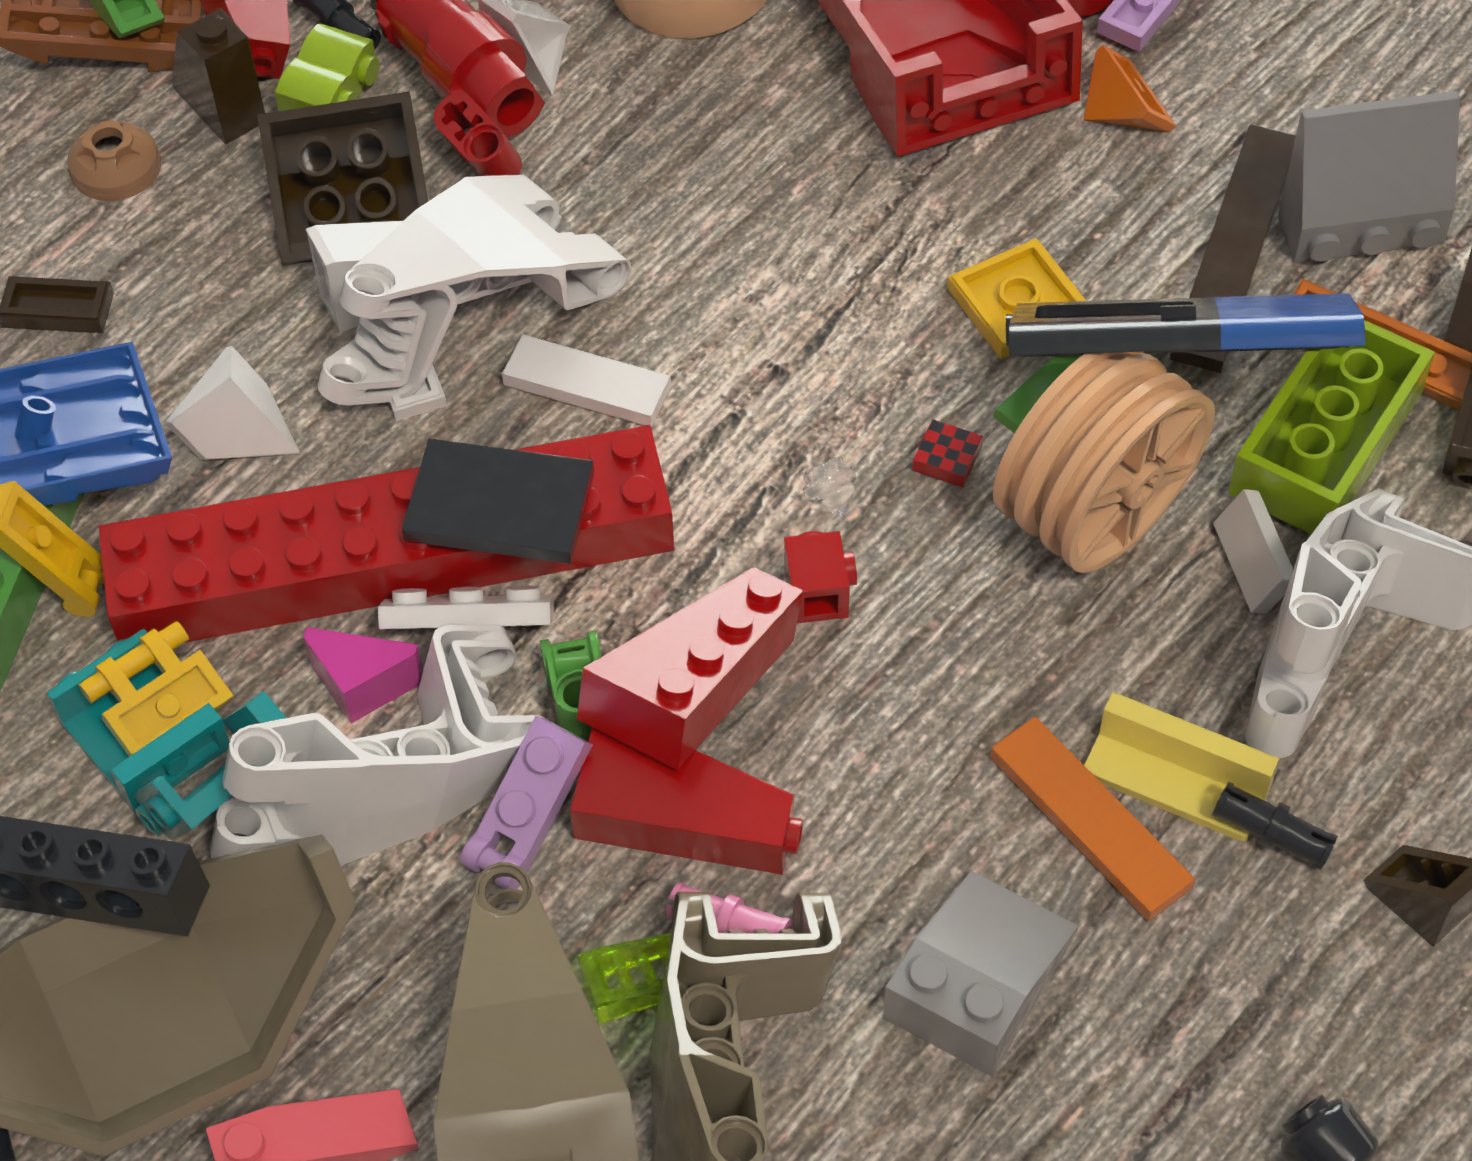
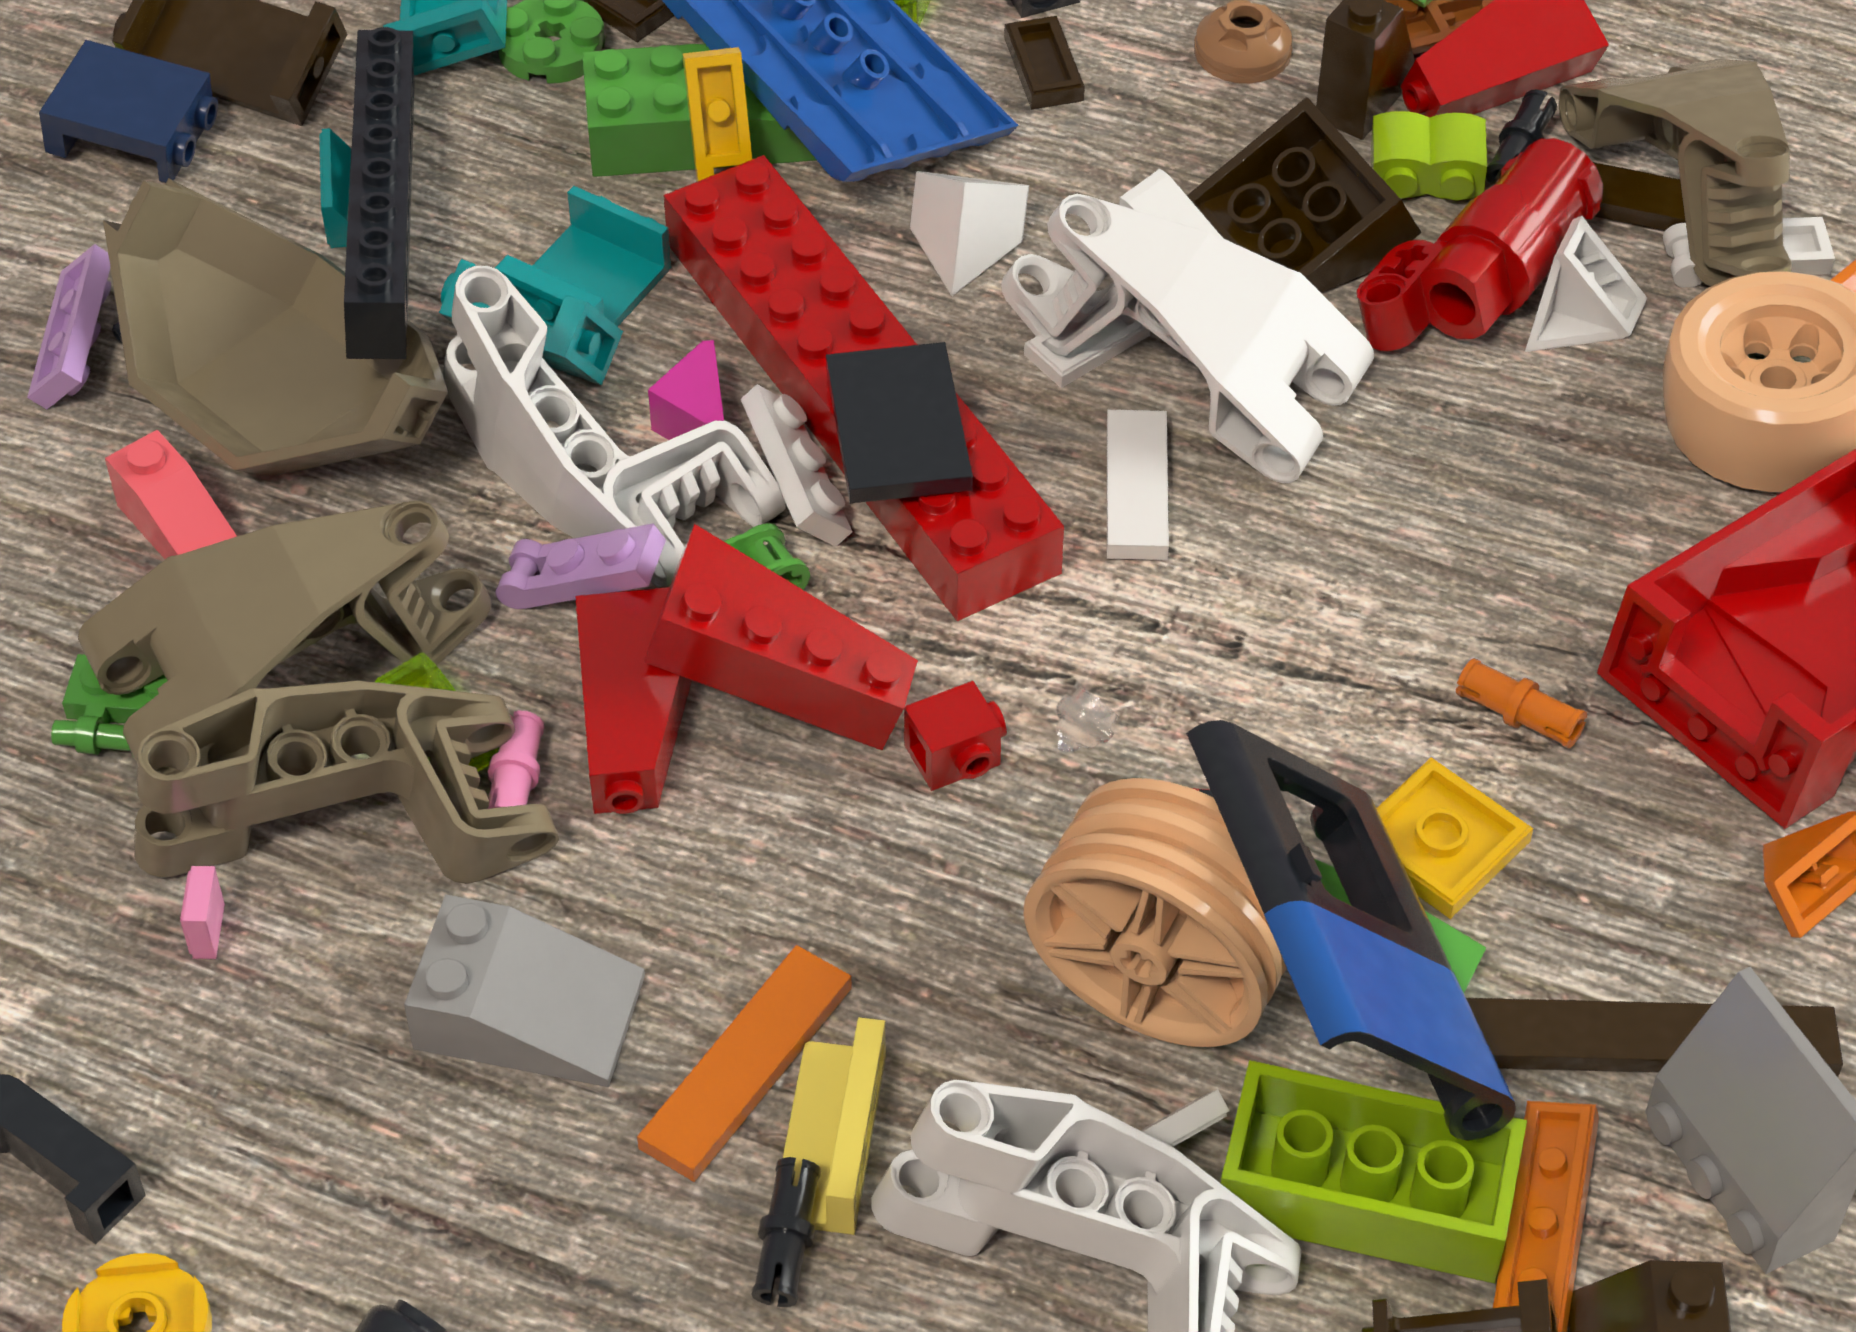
camera: 70 degrees right, 5 degrees down
(162, 702) = (620, 280): yellow plate -> none
(917, 206) = (1521, 703): none -> orange pin

